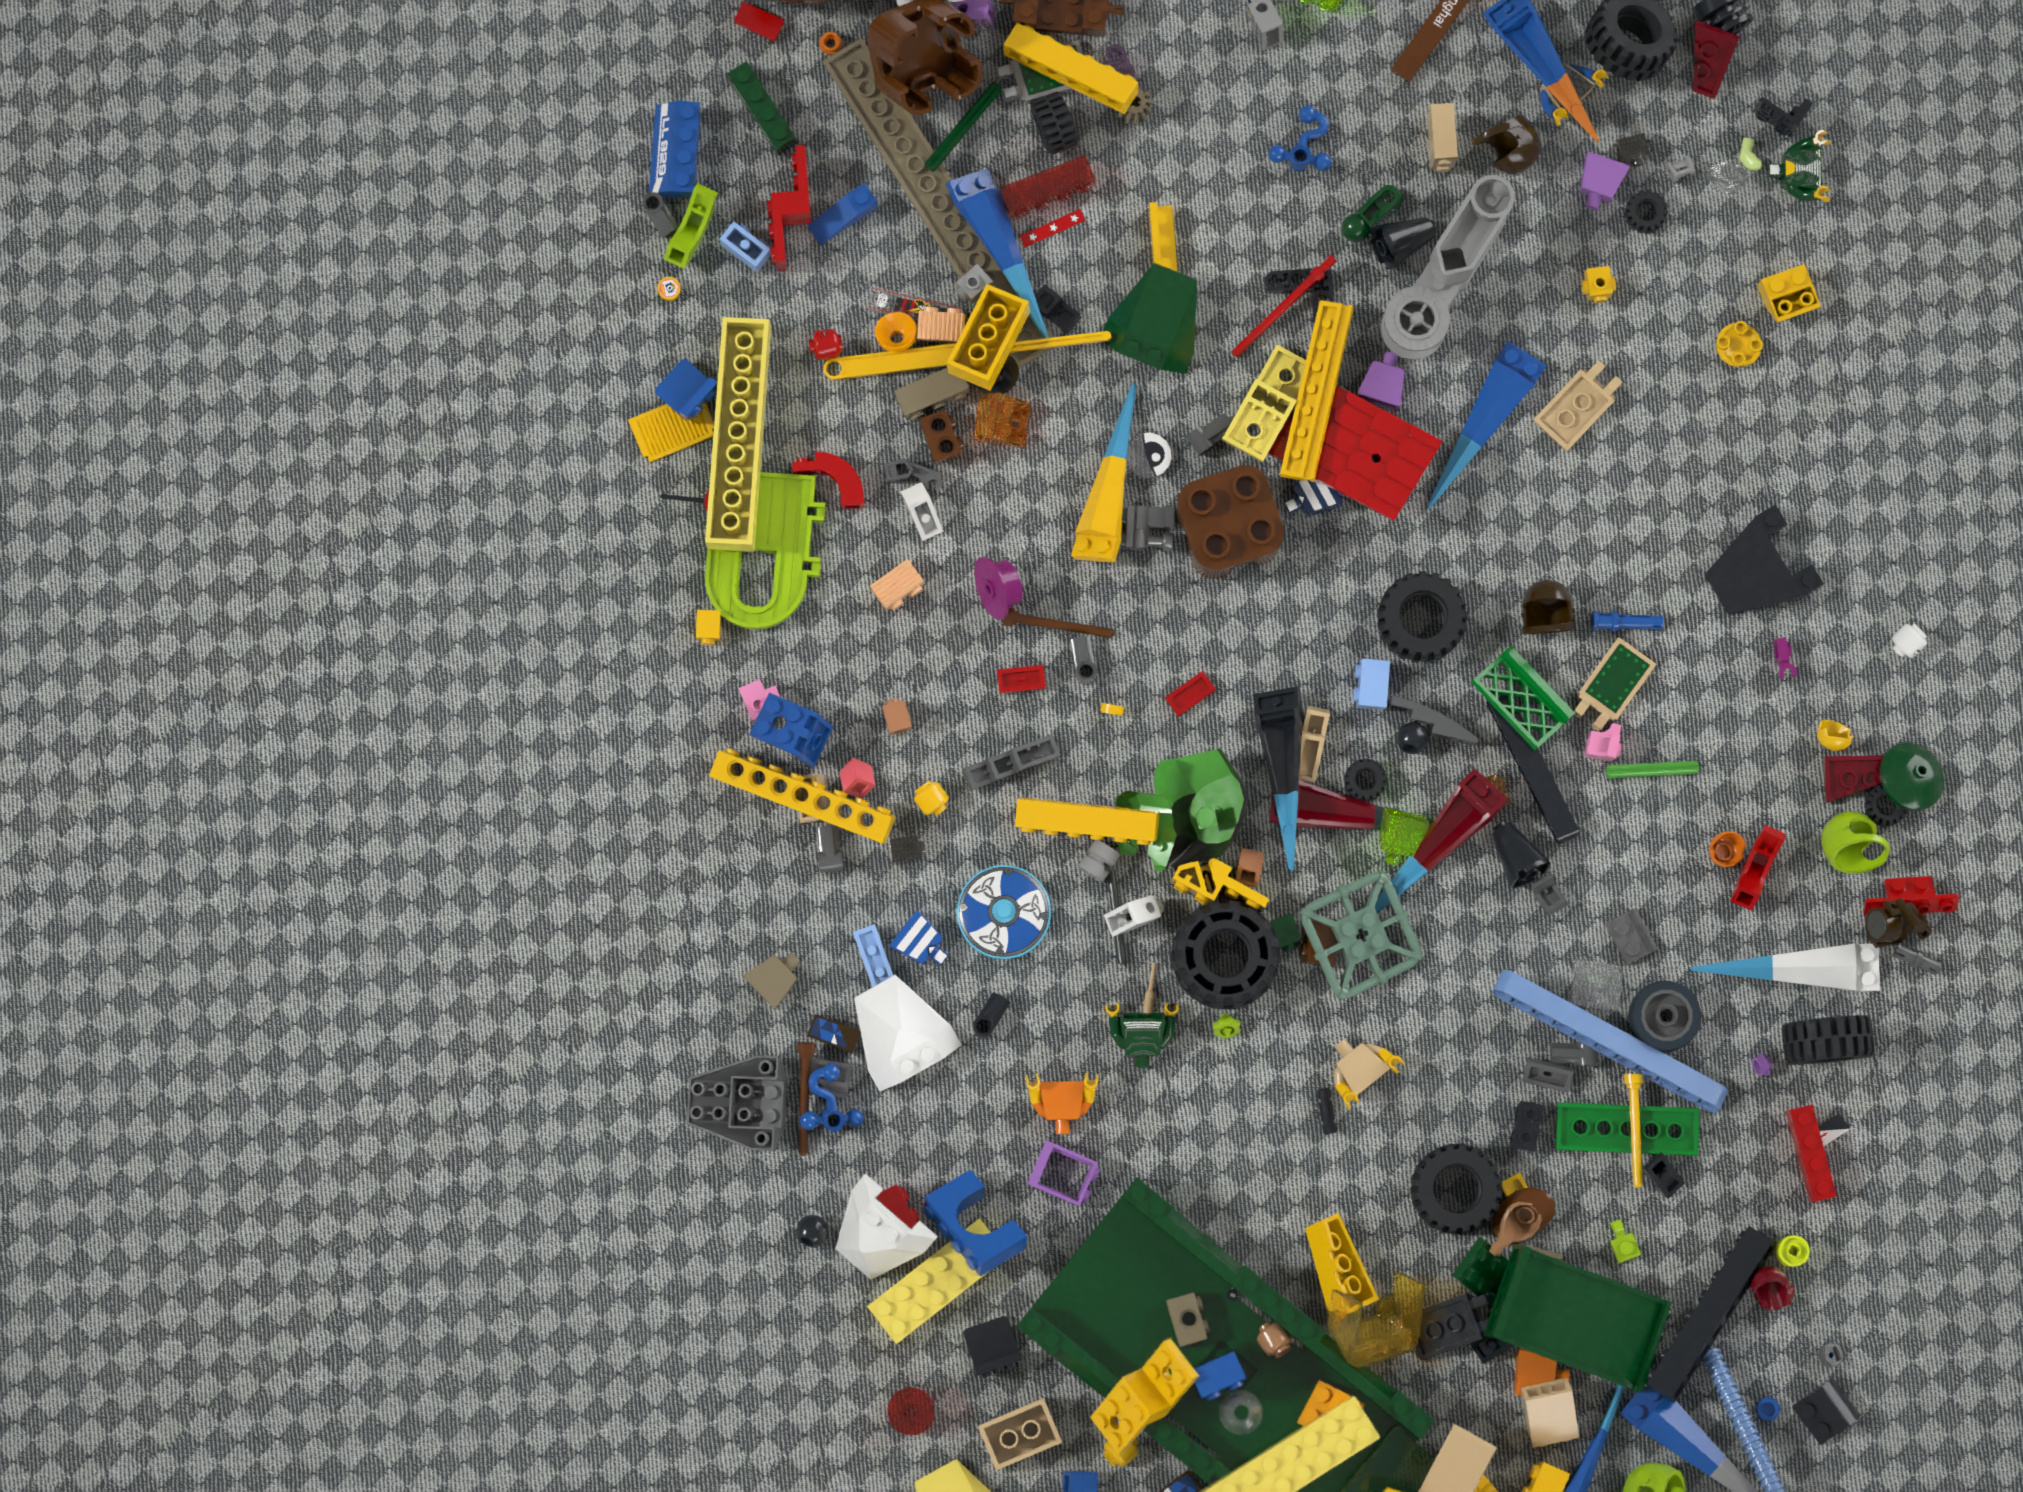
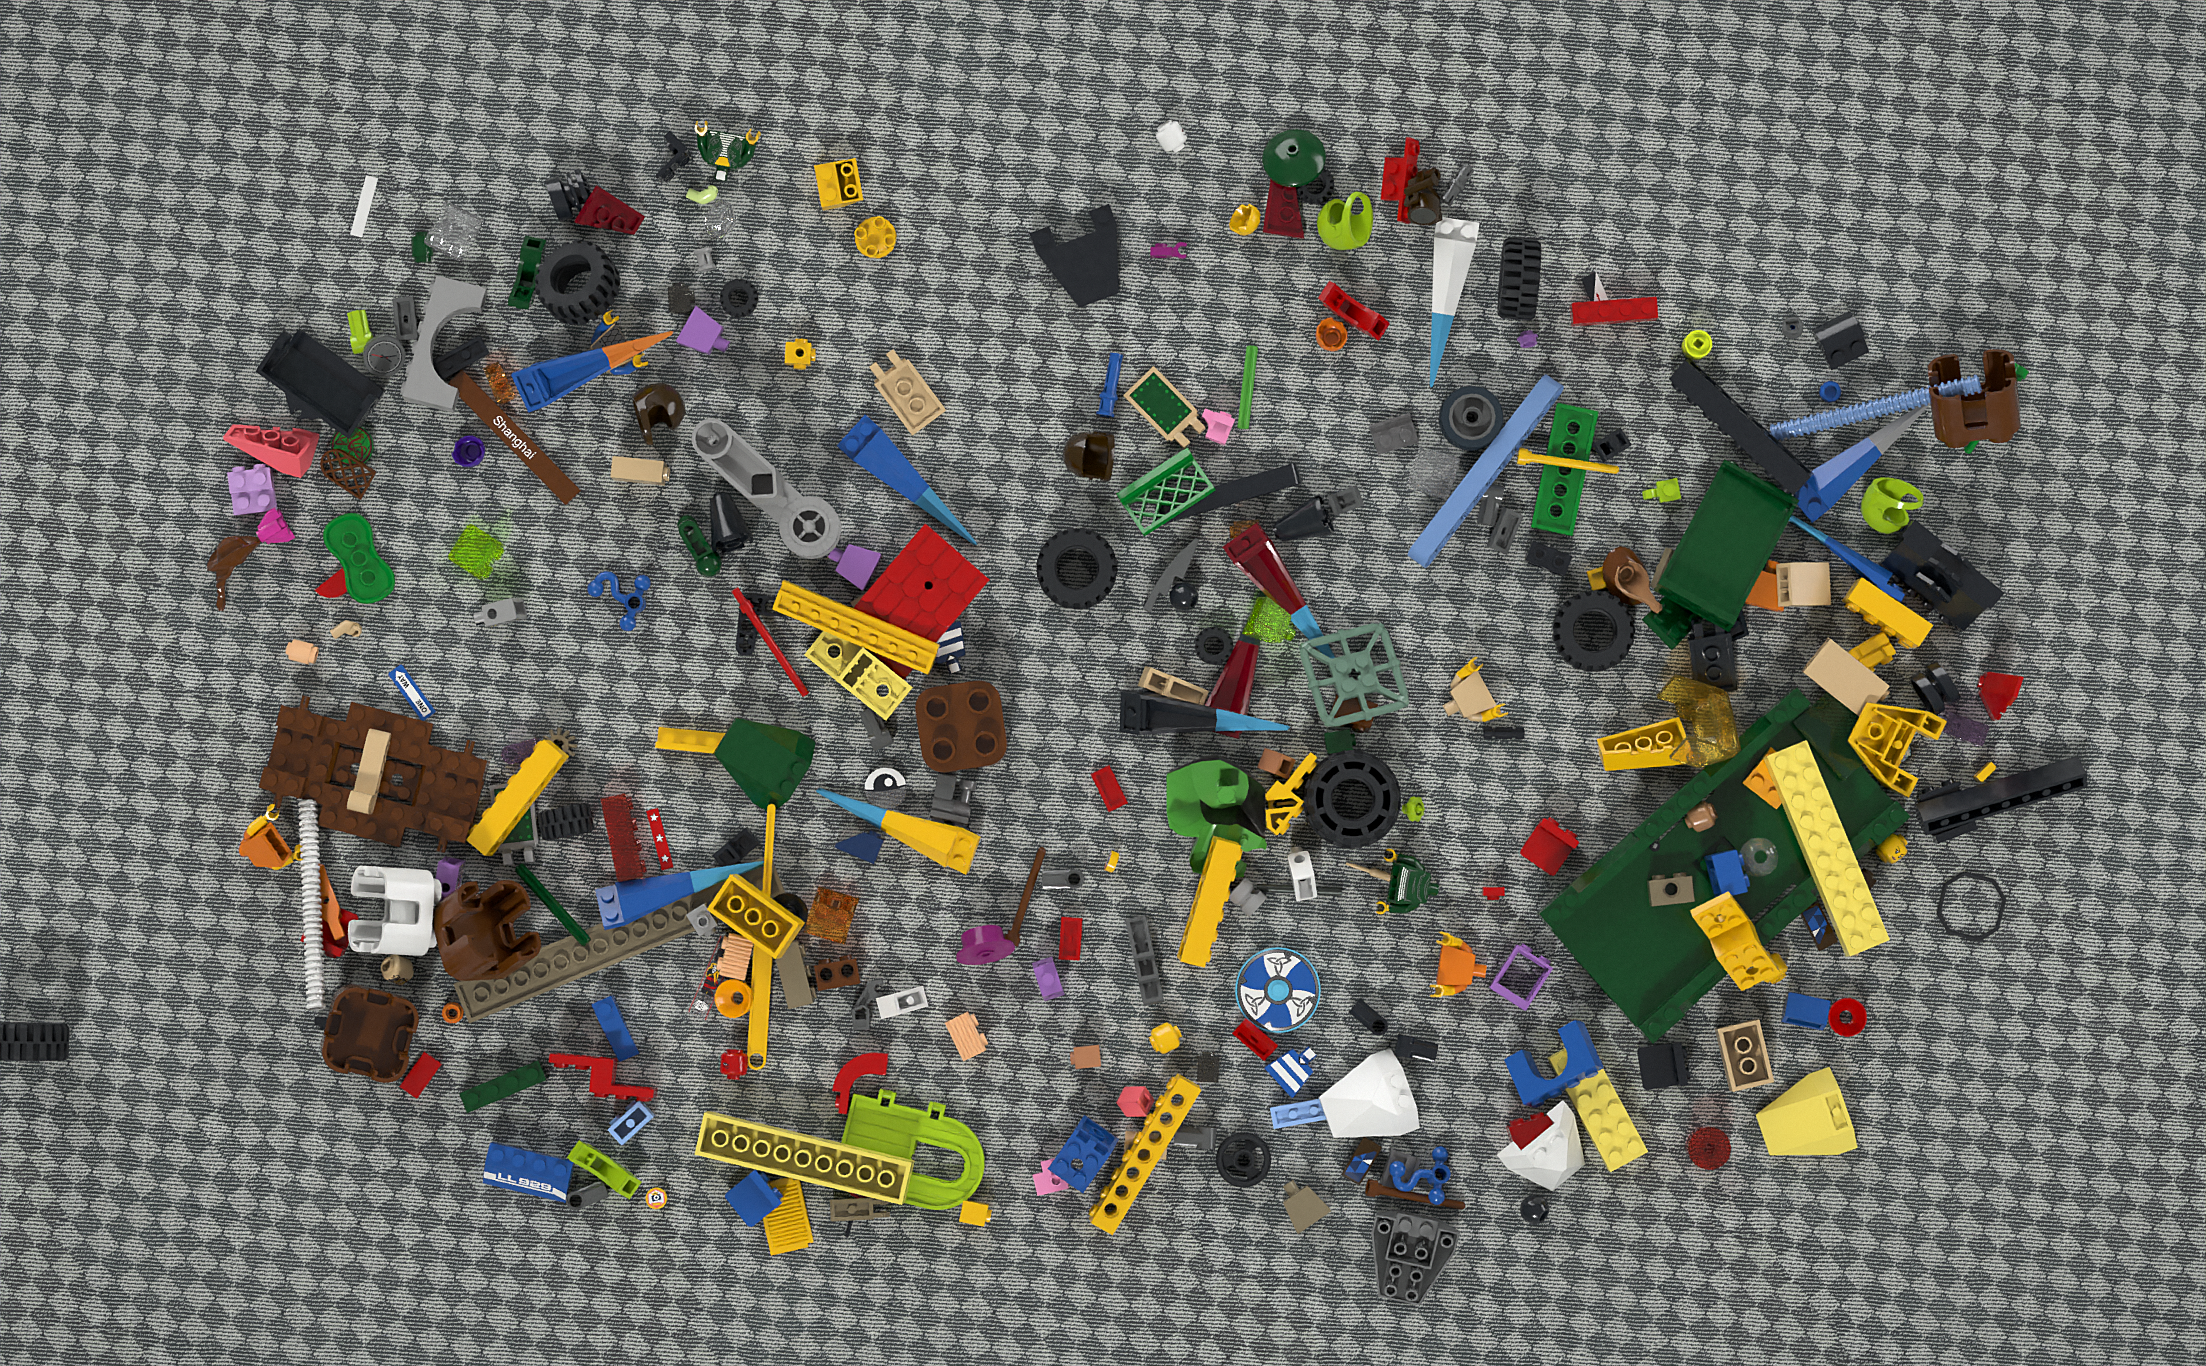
camera: 80 degrees left, 5 degrees up
(691, 499) = (856, 1209): none -> dark tan hinge
(808, 884) = (1251, 1142): none -> black wheel
(946, 895) = (1255, 1039): none -> red plate
(966, 1066) = (1411, 1047): none -> black piece
(973, 662) = (1048, 978): none -> medium lavender torso
(1082, 441) = (863, 846): none -> dark blue slope
(1149, 1128) = (1493, 893): none -> red plate
(1211, 1181) = (1549, 846): none -> red bracket
(1372, 684) = (1129, 624): light blue brick -> none
(1772, 1288) = (1727, 368): dark red hair -> none

